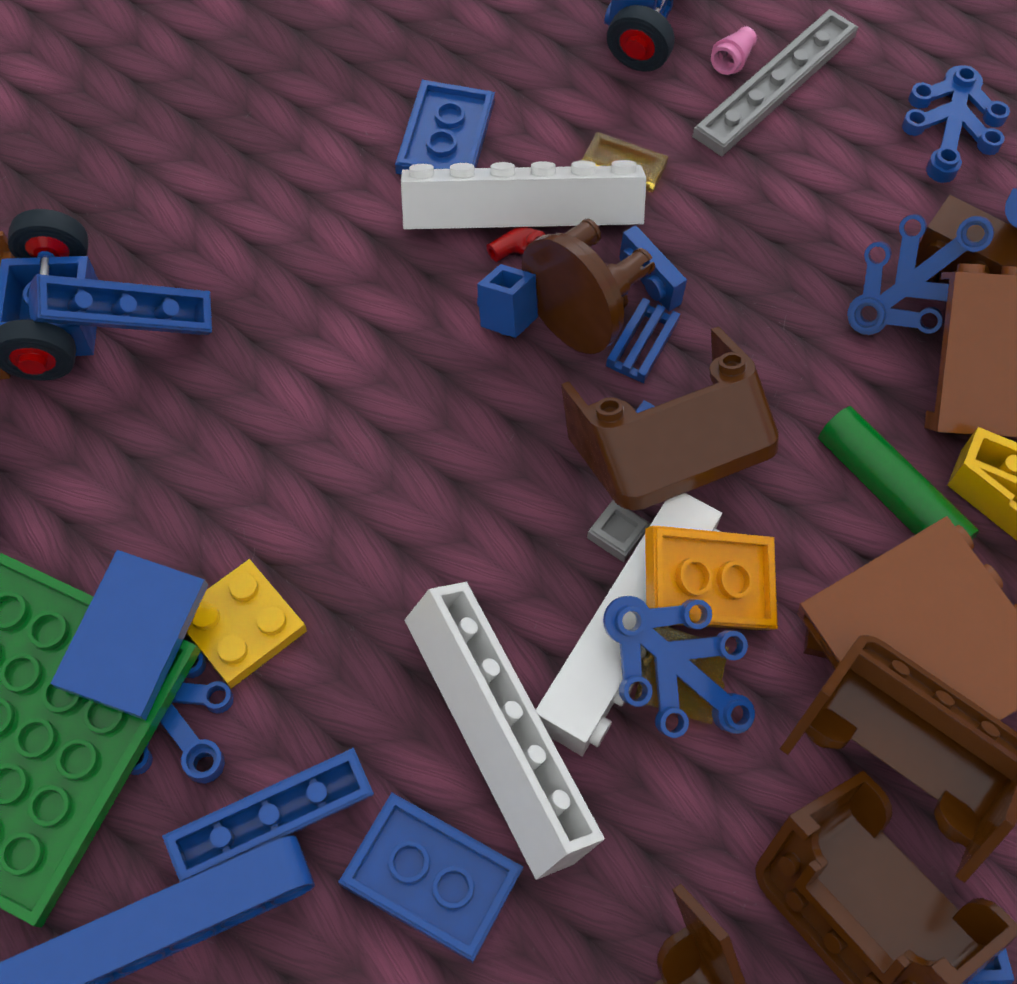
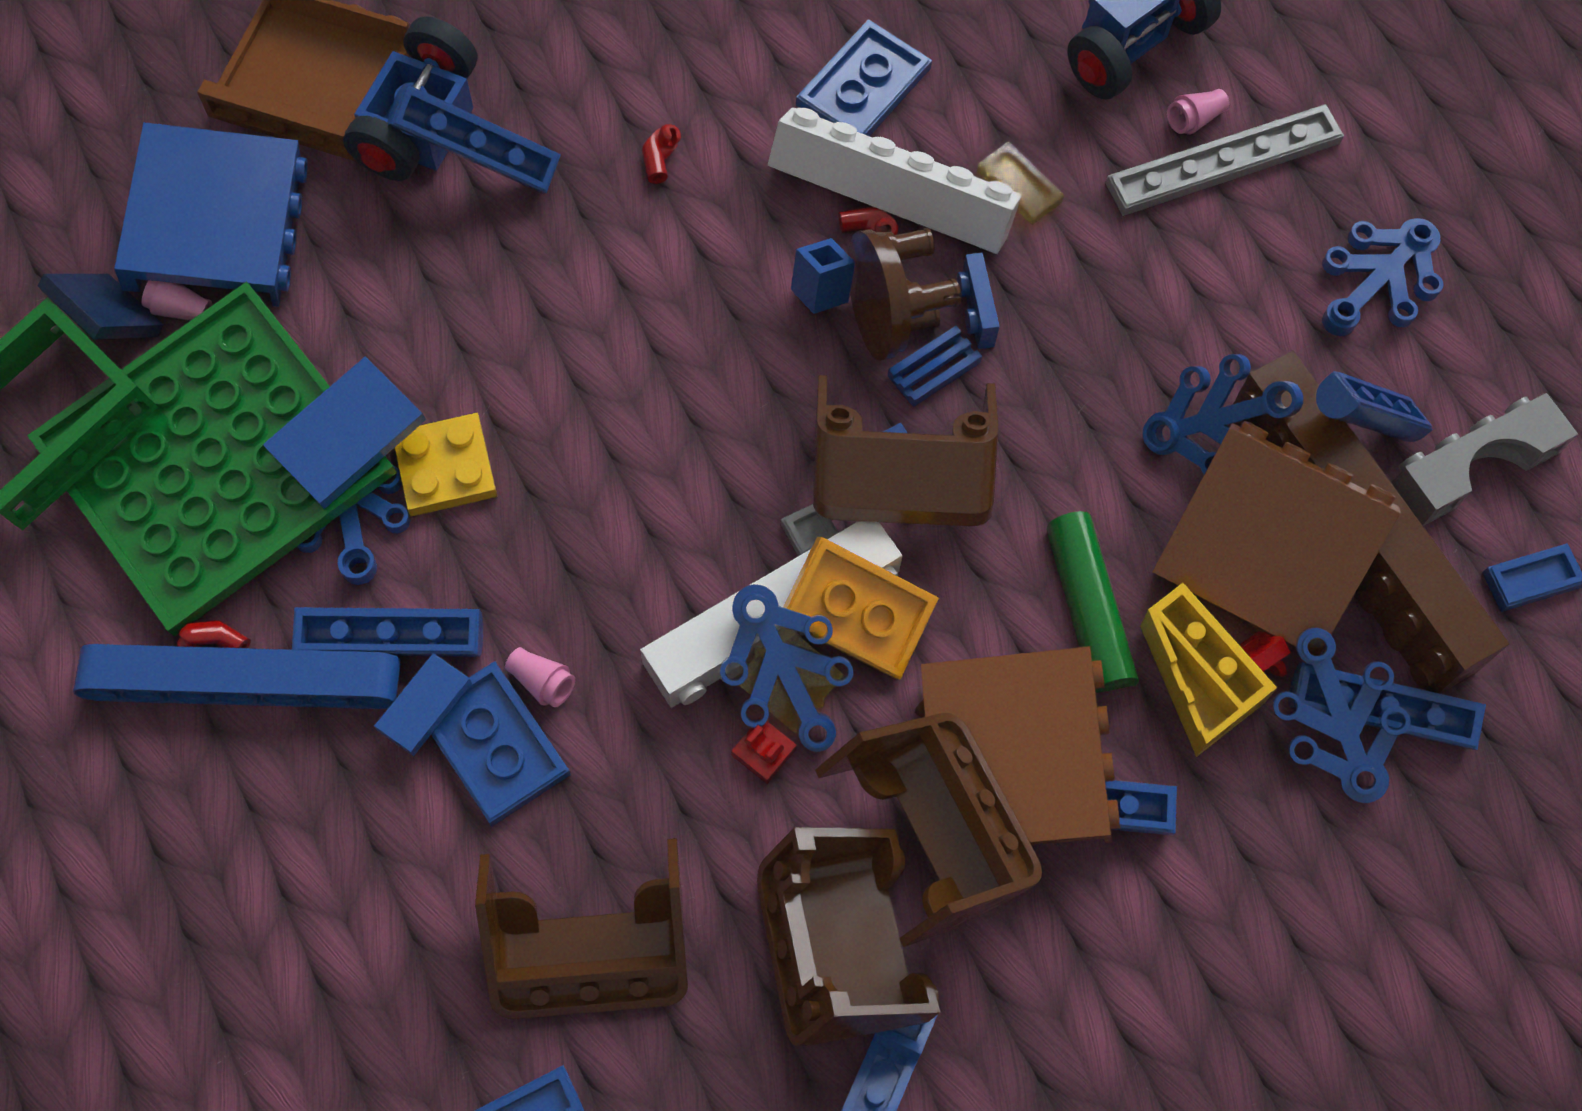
camera: 25 degrees right, 5 degrees up
(82, 903) = (211, 632): none -> red arm
(294, 256) = (657, 150): none -> red arm
(344, 872) = (423, 704): none -> blue tile
(447, 786) = (543, 678): none -> bright pink cone
(503, 730) = (608, 649): white brick -> none
(694, 756) = (764, 751): none -> red tile

